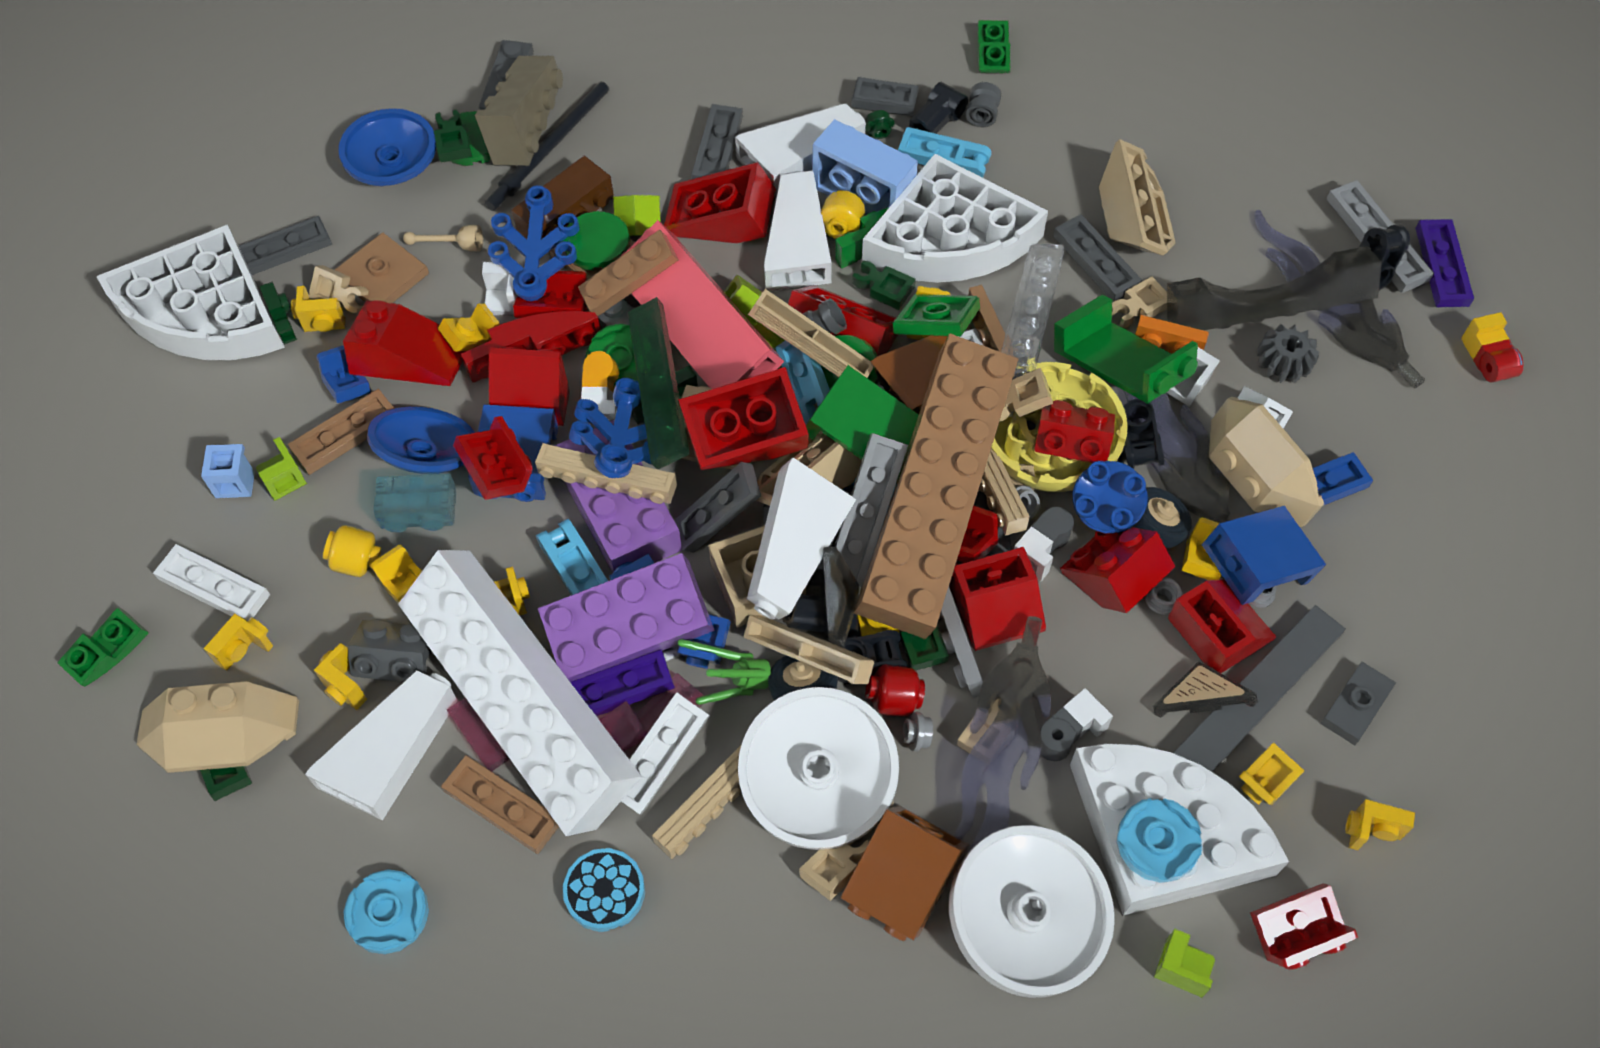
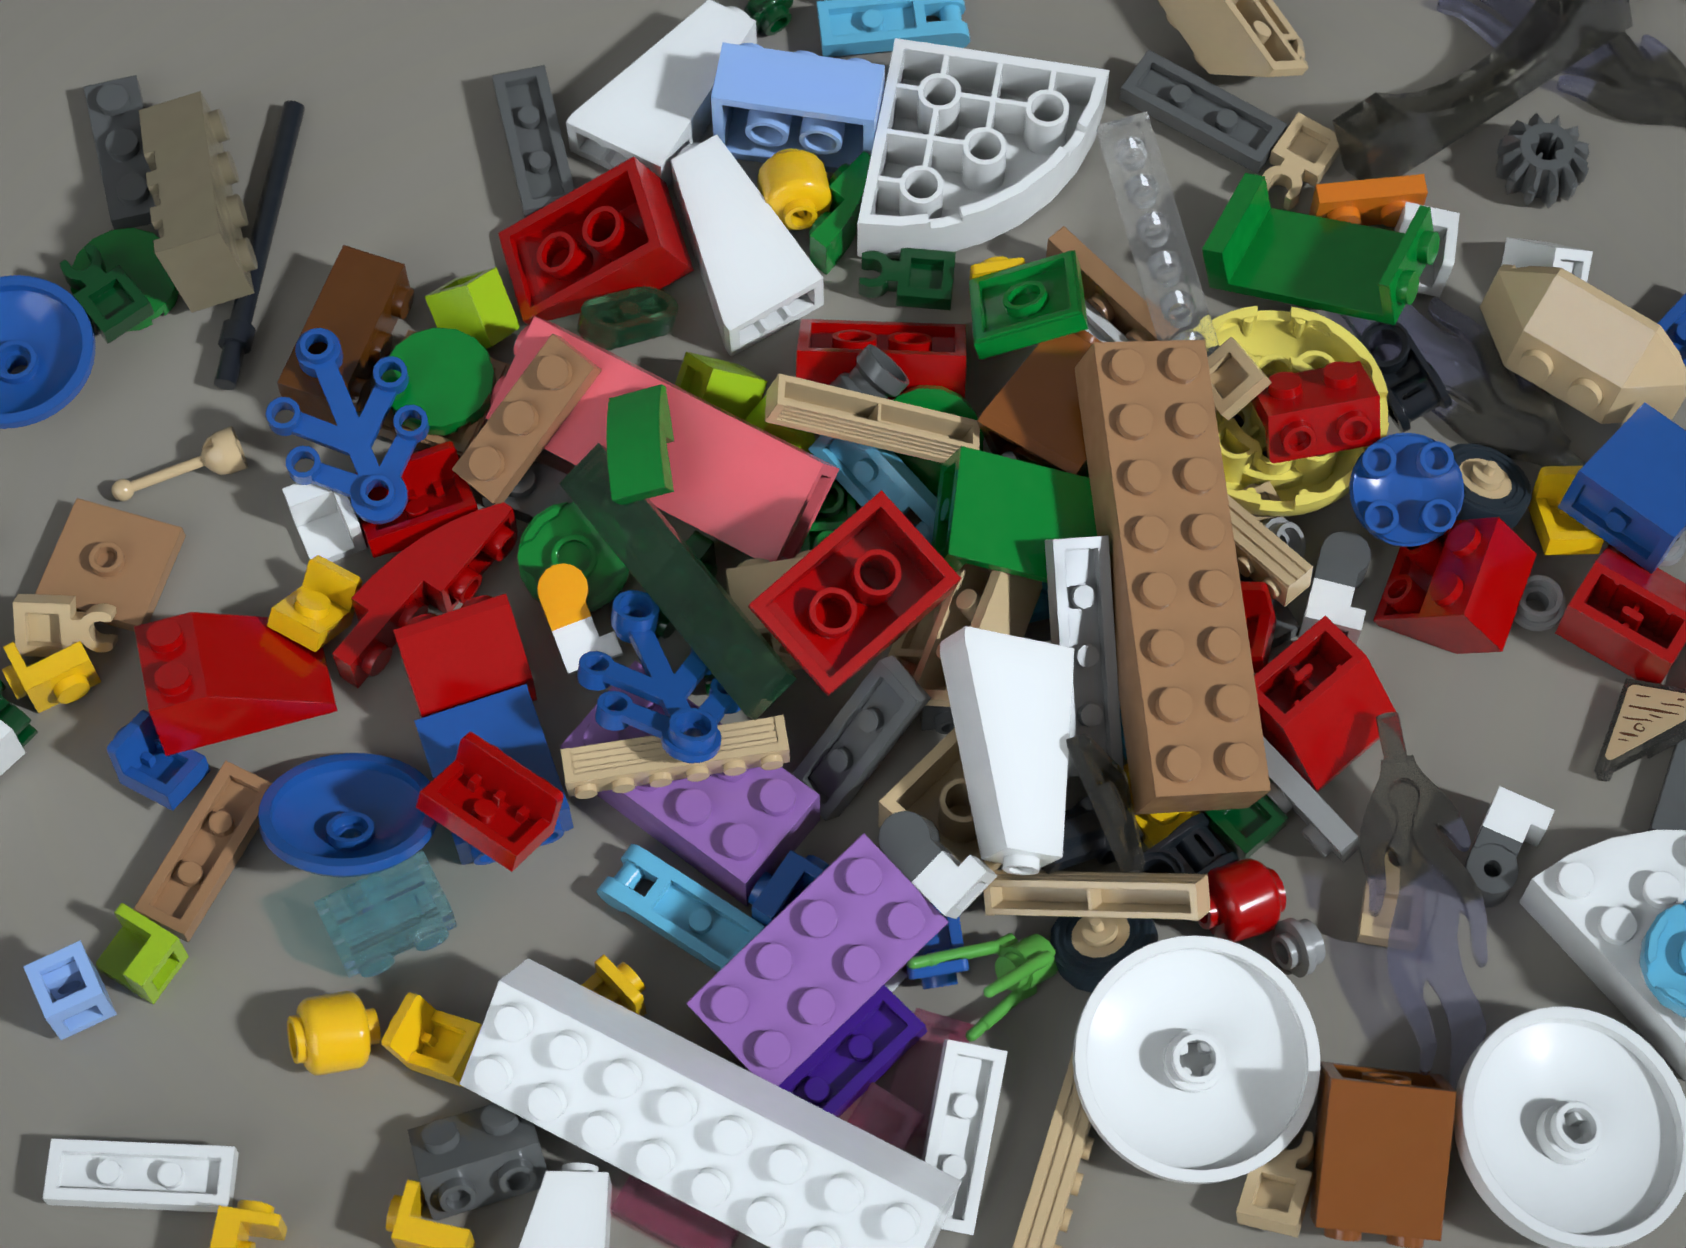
camera: 25 degrees left, 5 degrees up
(672, 302) = (637, 445): none -> green slope
(715, 246) = (627, 317): none -> clear green plate
(715, 592) = (917, 851): none -> leg

